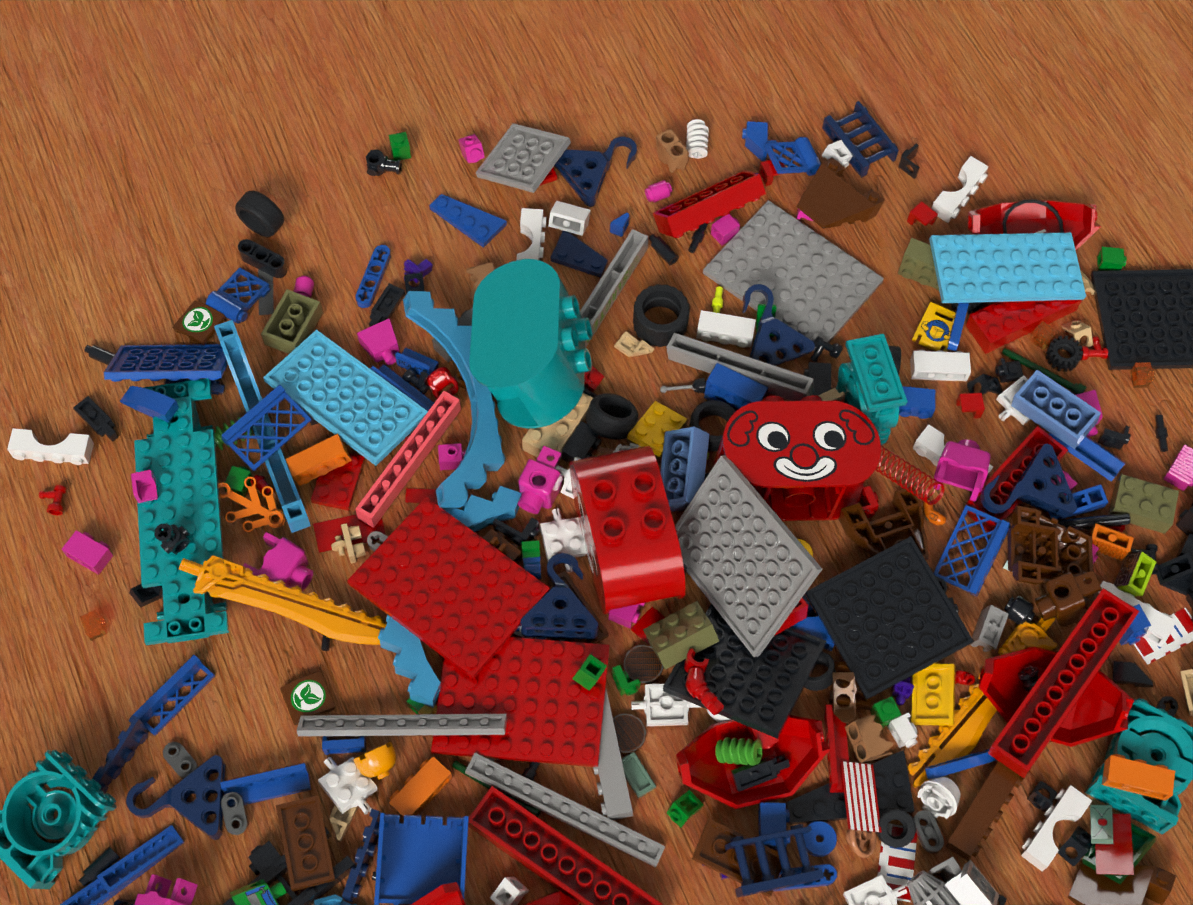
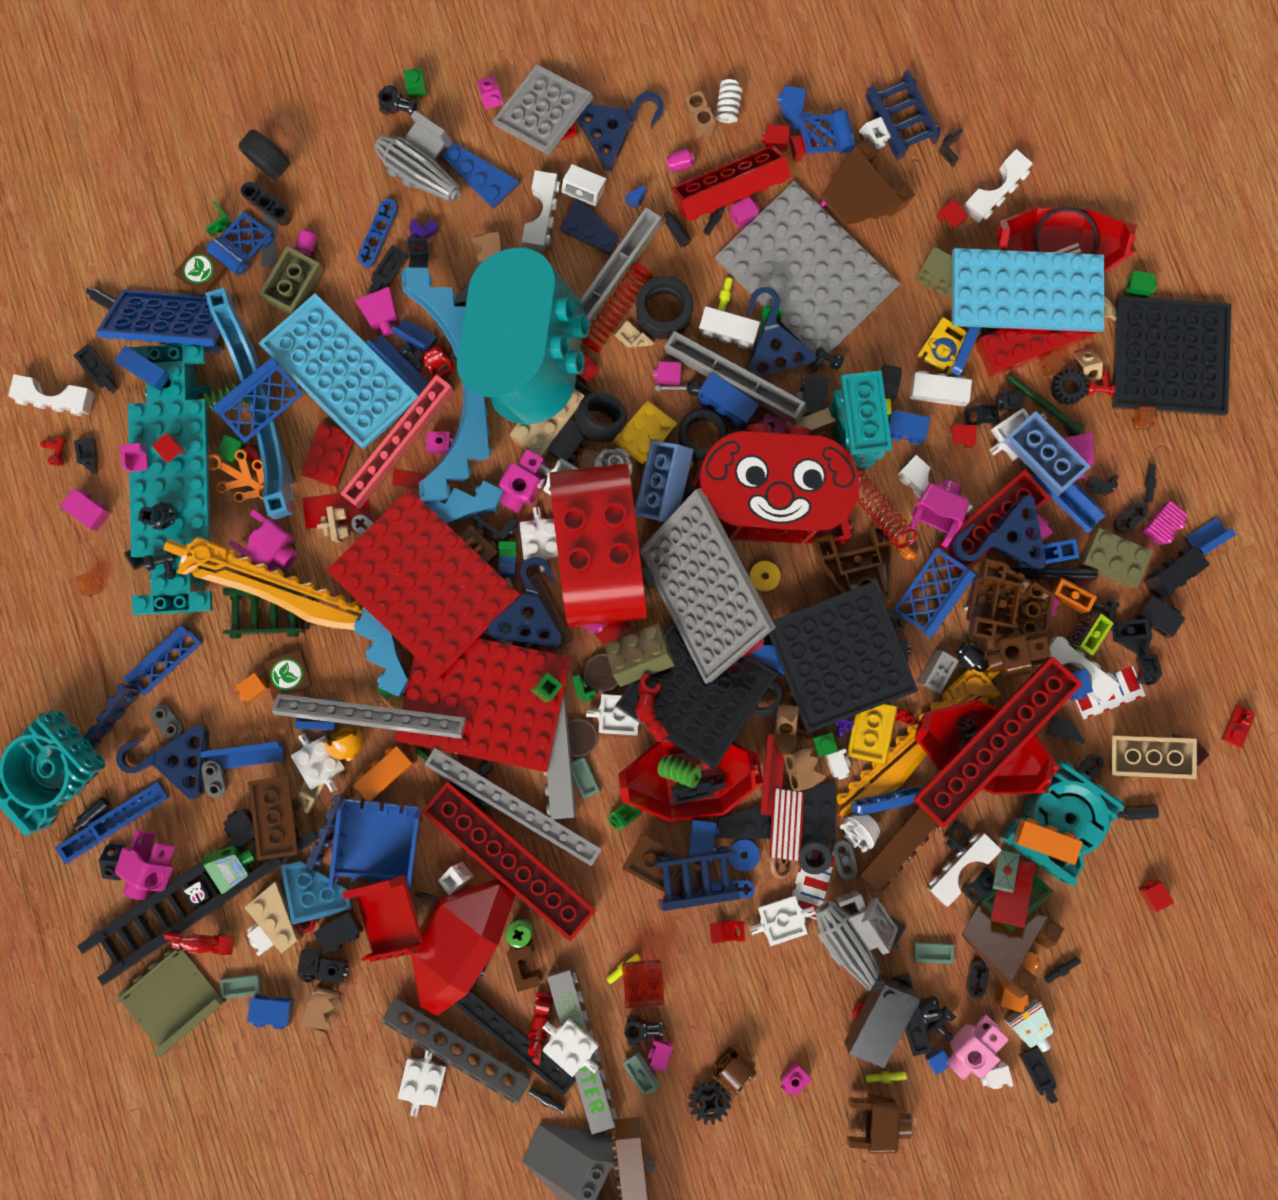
camera: 10 degrees right, 20 degrees up
(87, 499) = (87, 454): none -> black slope
(179, 473) = (168, 447): none -> red panel
(180, 582) = (167, 560): none -> black piece
(217, 279) = (220, 224): none -> green bracket
(251, 619) = (236, 595): none -> dark green fence
(272, 714) = (252, 688): none -> orange brick
(318, 460) = (308, 437): orange brick -> none
(405, 206) = (415, 157): none -> light grey piece
(632, 290) = (635, 267): none -> red piece
(672, 374) = (668, 373): none -> dark pink brick
(745, 162) = (776, 135): none -> red brick
(1146, 464) = (1133, 521): none -> black beam

